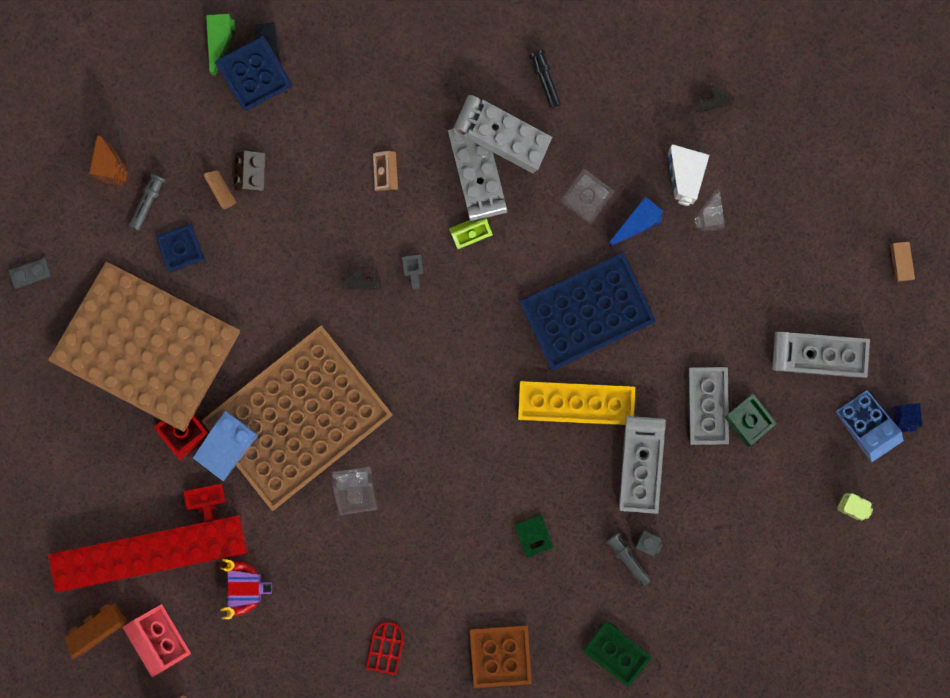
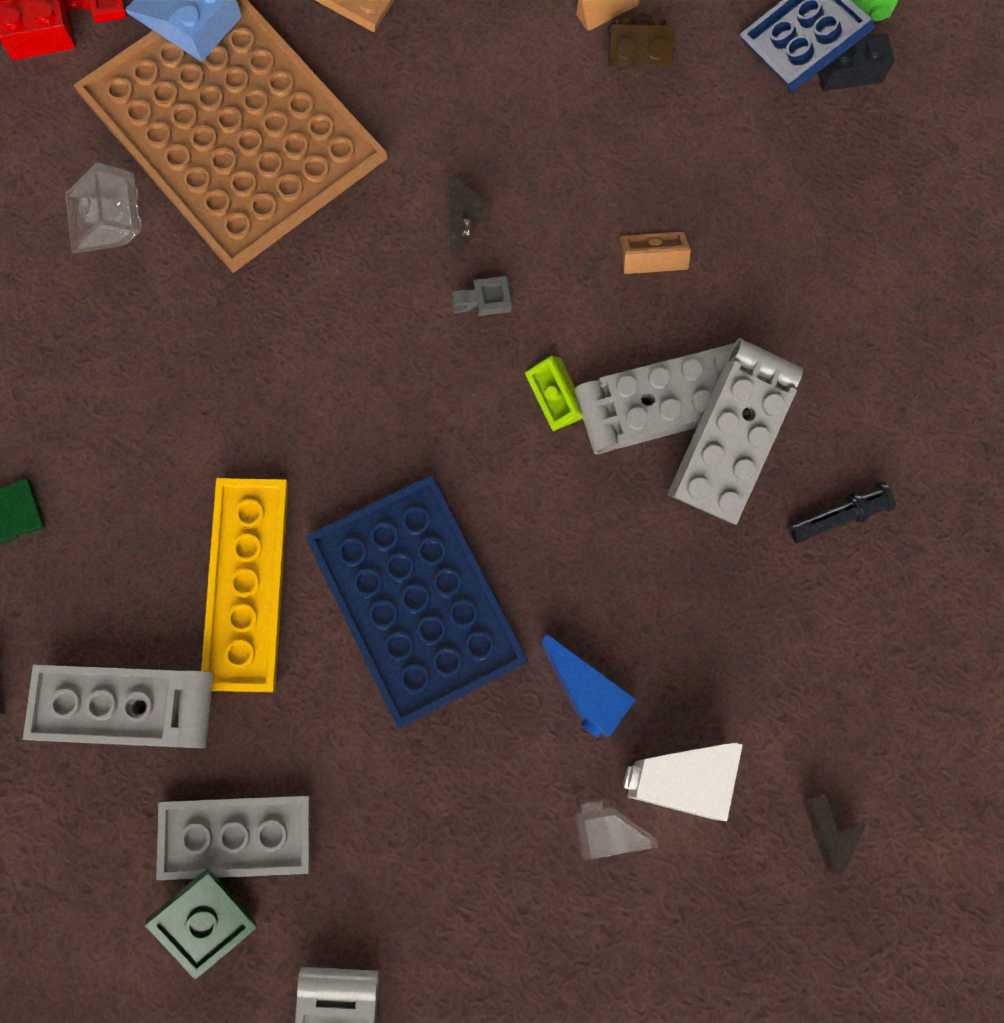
camera: 80 degrees right, 10 degrees down
(587, 196) = (631, 593): clear slope -> none

